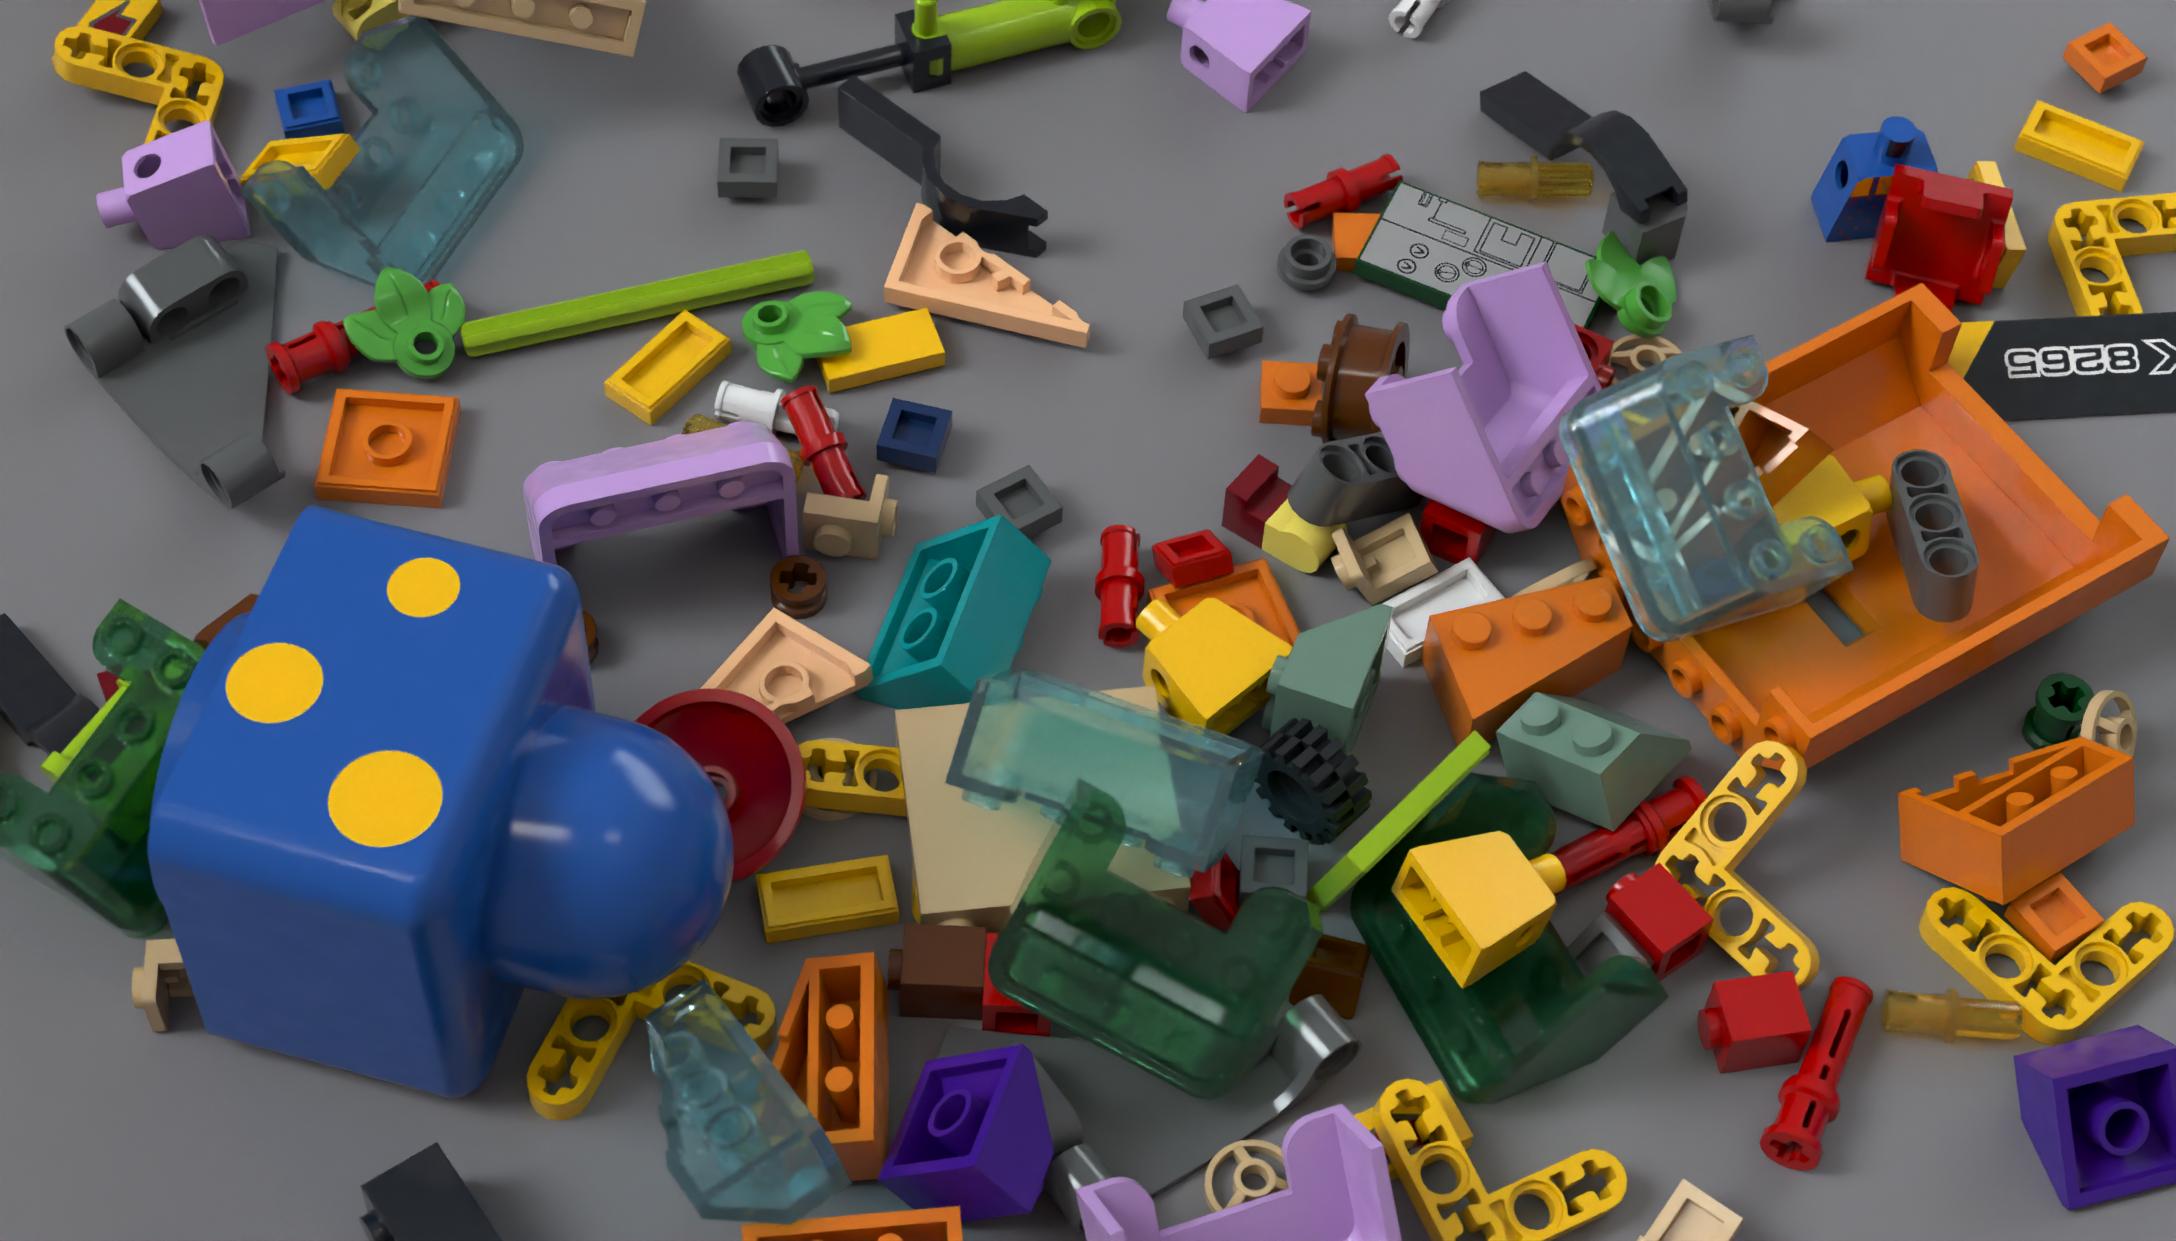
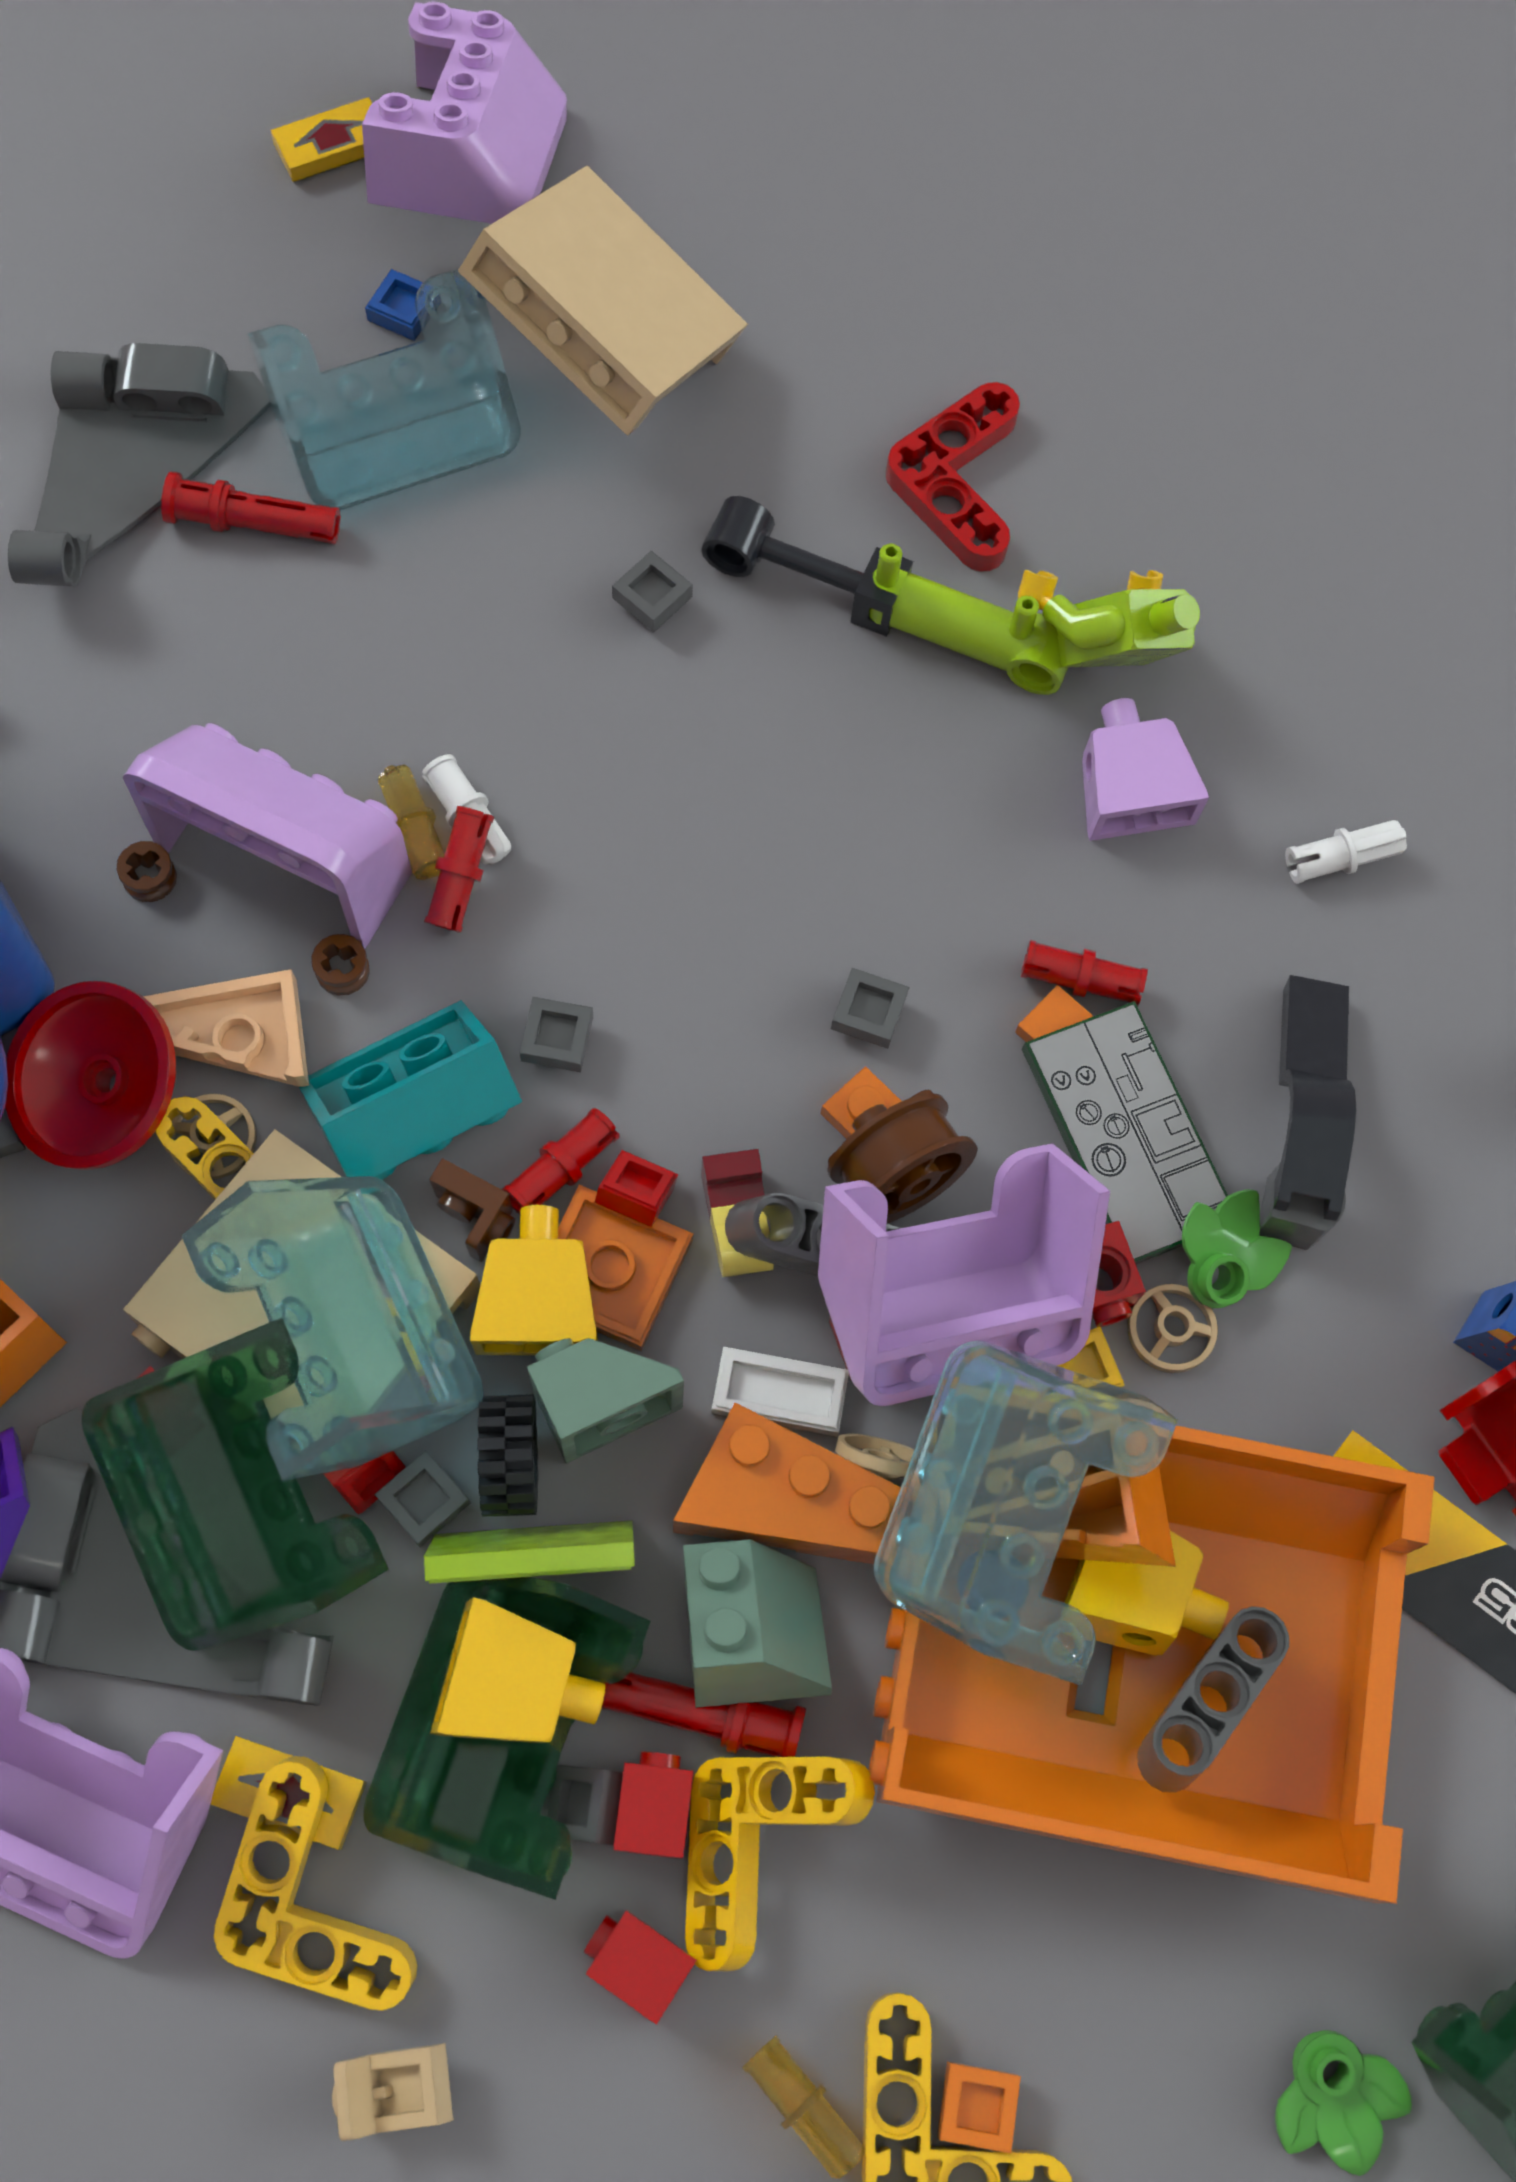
camera: 40 degrees right, 15 degrees up
(166, 87) = (315, 224): yellow beam -> none
(179, 190) = (230, 296): lavender torso -> none
(321, 156) = (338, 343): yellow tile -> none
(388, 448) = (186, 618): orange tile -> none
(404, 316) = (284, 522): bright green plate -> none
(637, 303) = (467, 641): lime axle -> none
(667, 367) = (435, 709): yellow tile -> none
(796, 331) = (549, 760): bright green plate -> none
(827, 899) = (107, 1229): yellow tile -> none
(850, 525) = (408, 943): tan bracket -> none
(885, 351) = (595, 818): yellow tile -> none
(914, 435) = (542, 911): dark blue plate -> none
(917, 153) = (788, 791): black piece -> none
(939, 971) = (102, 1352): reddish brown brick -> none
(971, 285) = (708, 806): light nougat wing -> none
(1090, 652) = (469, 1196): none -> reddish brown bracket
(1245, 1166) = (163, 1711): tan piece -> none
(1306, 262) = (994, 996): dark grey plate -> none
(1336, 972) = (386, 1614): reddish brown slope -> none
(1383, 559) = (774, 1314): tan bracket -> none
(1534, 179) = (1246, 1083): clear yellow axle -> none
(1811, 1096) = (617, 2066): red pin -> none
(2019, 823) = (1030, 2010): orange wedge -> none
(2058, 710) = (1191, 1924): dark green bush -> none
(2114, 732) = (1195, 2006): tan piece -> none

